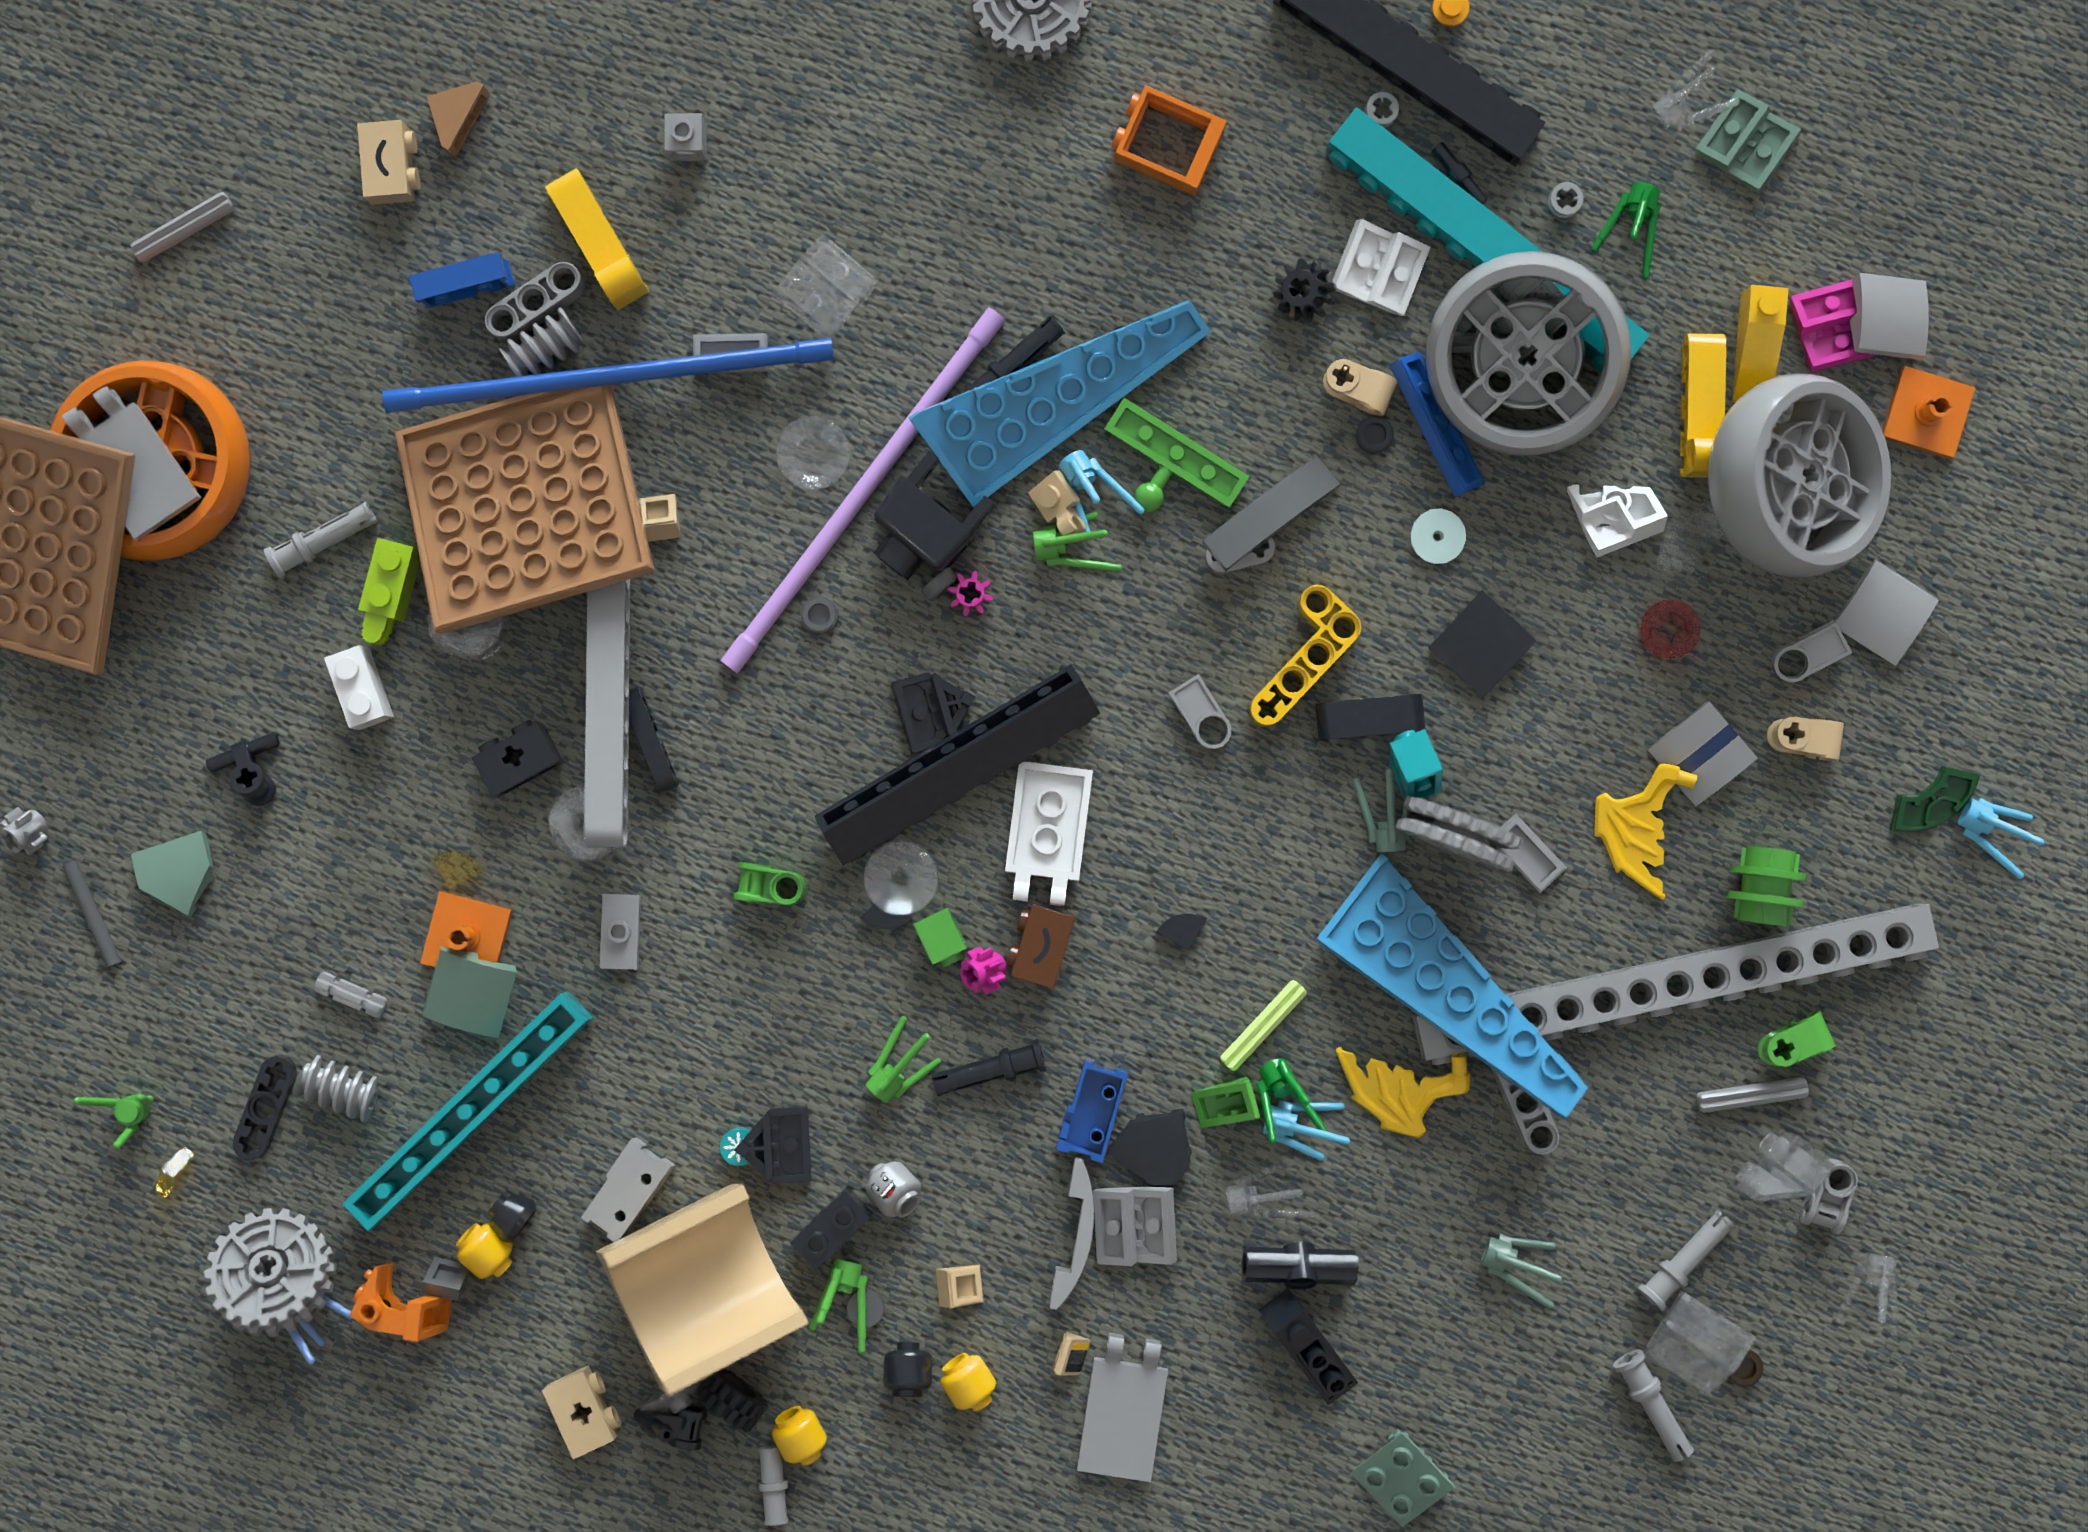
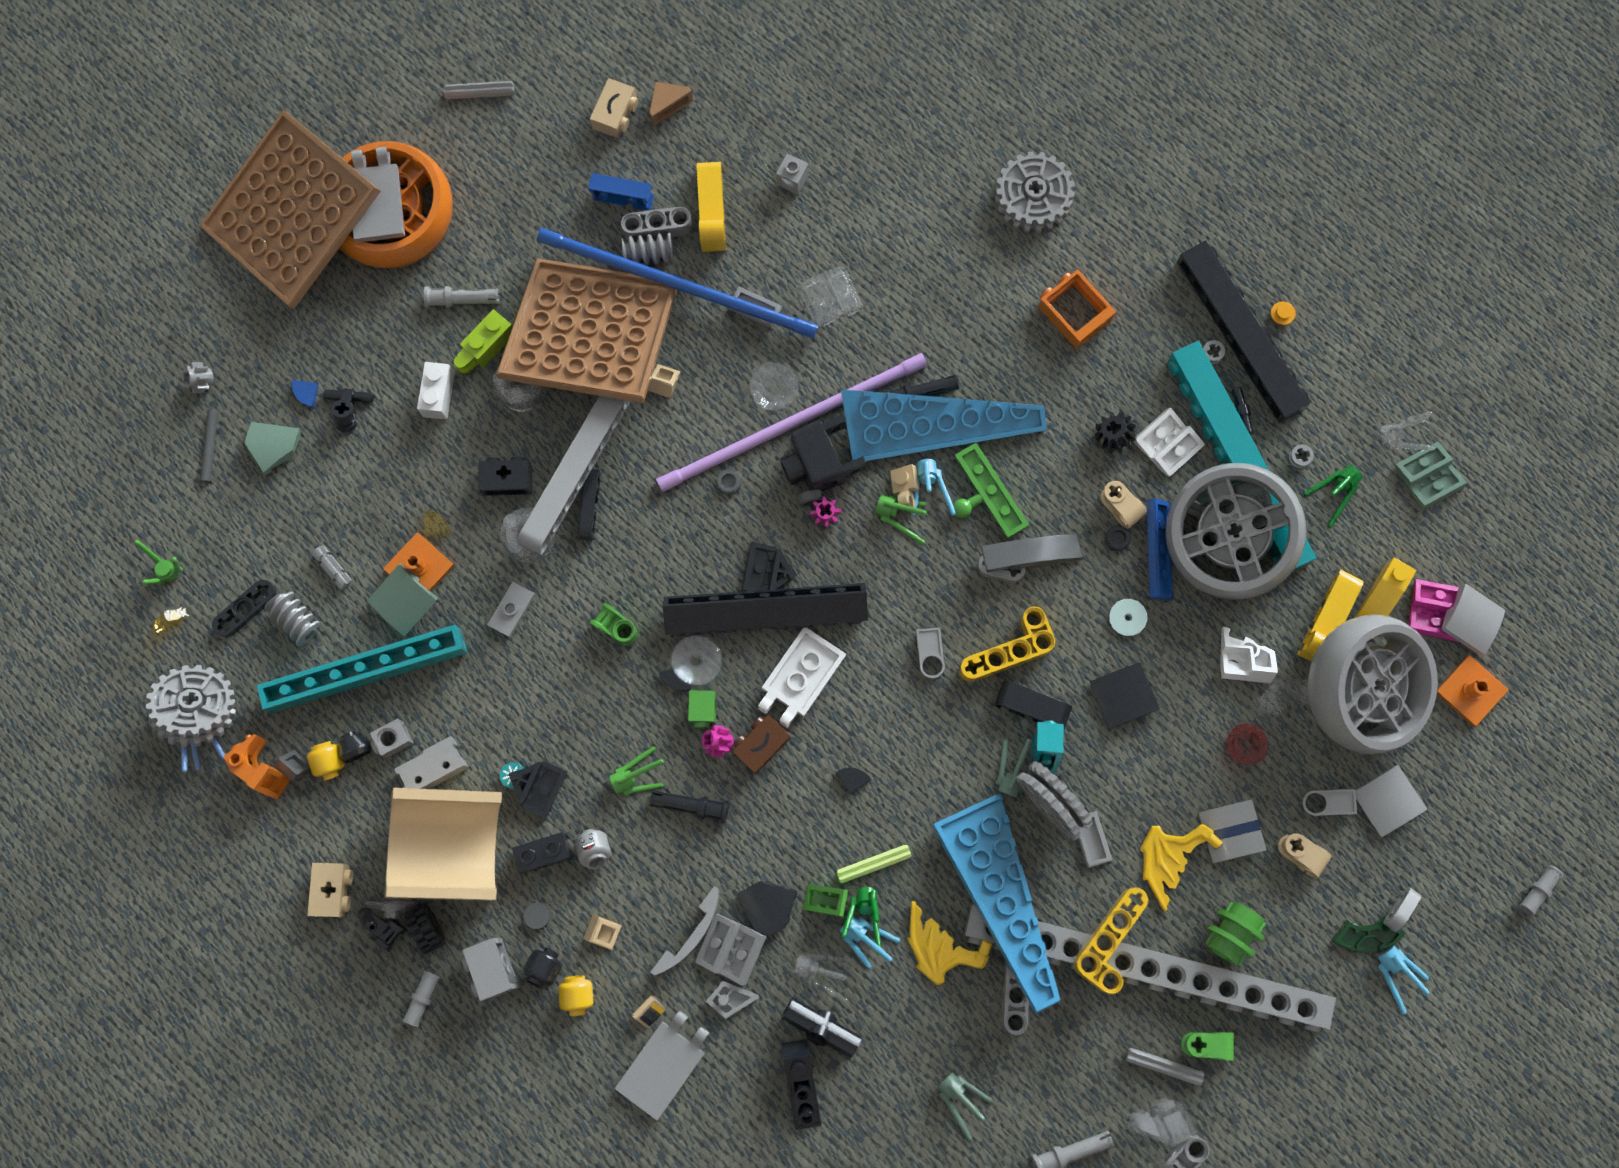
camera: 25 degrees right, 10 degrees down
(181, 776) = (305, 392): none -> blue tile
(566, 1168) = (402, 738): none -> light grey brick
(799, 1435) = (452, 976): yellow head -> none
(843, 1408) = (489, 969): none -> light grey brick
(844, 1278) = (533, 889): bright green plant -> none
(1092, 1111) = (740, 863): blue piece -> none
(1165, 1287) = (729, 999): none -> light grey piece
(1619, 969) = (1114, 936): none -> yellow beam
(1963, 748) = (1402, 909): none -> light grey beam

